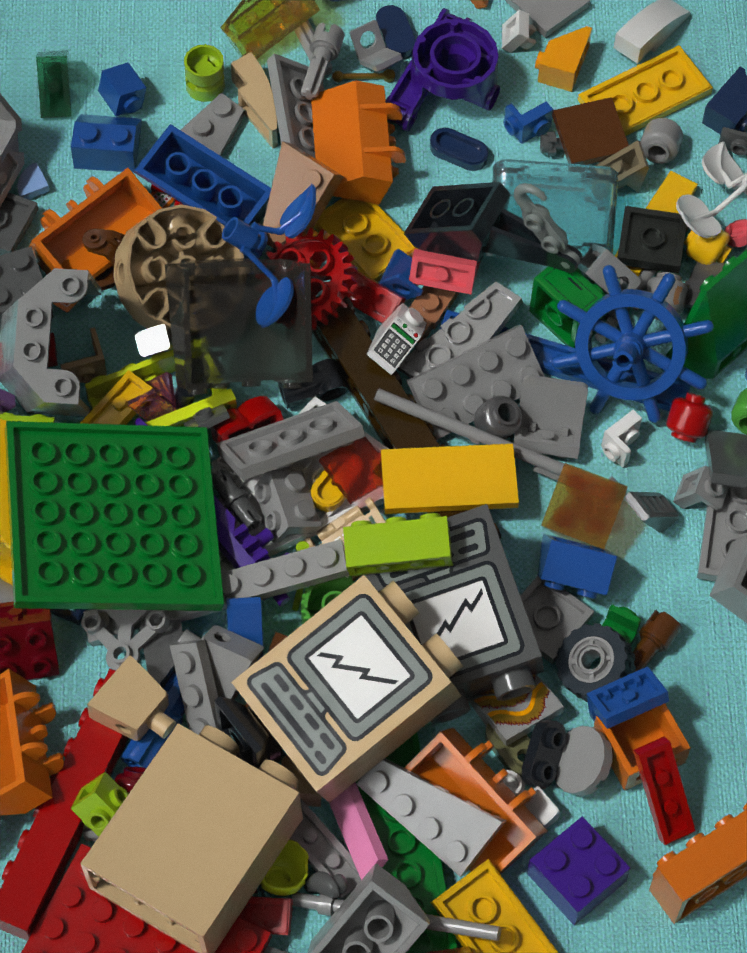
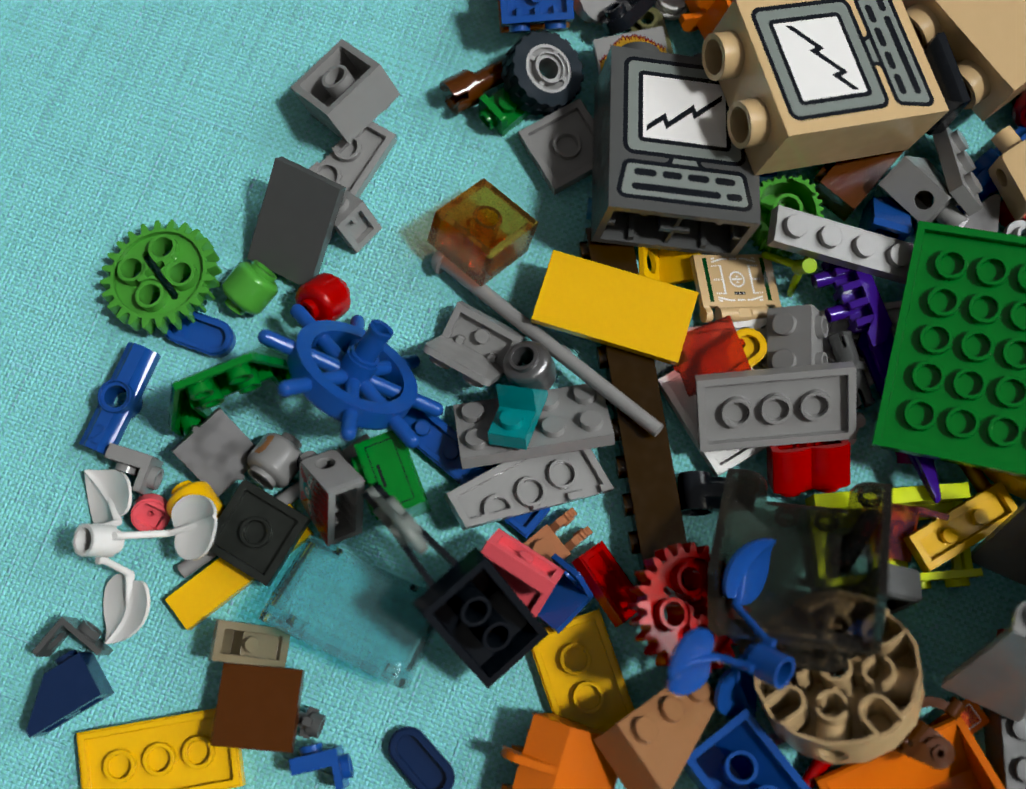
camera: 155 degrees left, 15 degrees up
(89, 367) = (949, 613): tan bracket -> none
(208, 417) = (853, 470): dark grey bracket -> none
(396, 337) = (607, 502): white slope -> none
(397, 545) = (723, 192): lime brick -> none
(492, 371) = (516, 415): none -> teal slope
(575, 565) = (521, 170): blue slope -> none
(620, 436) = (404, 313): white bracket -> none
(653, 509) = (413, 207): dark grey slope -> none
(661, 140) = (177, 673): light grey head -> none

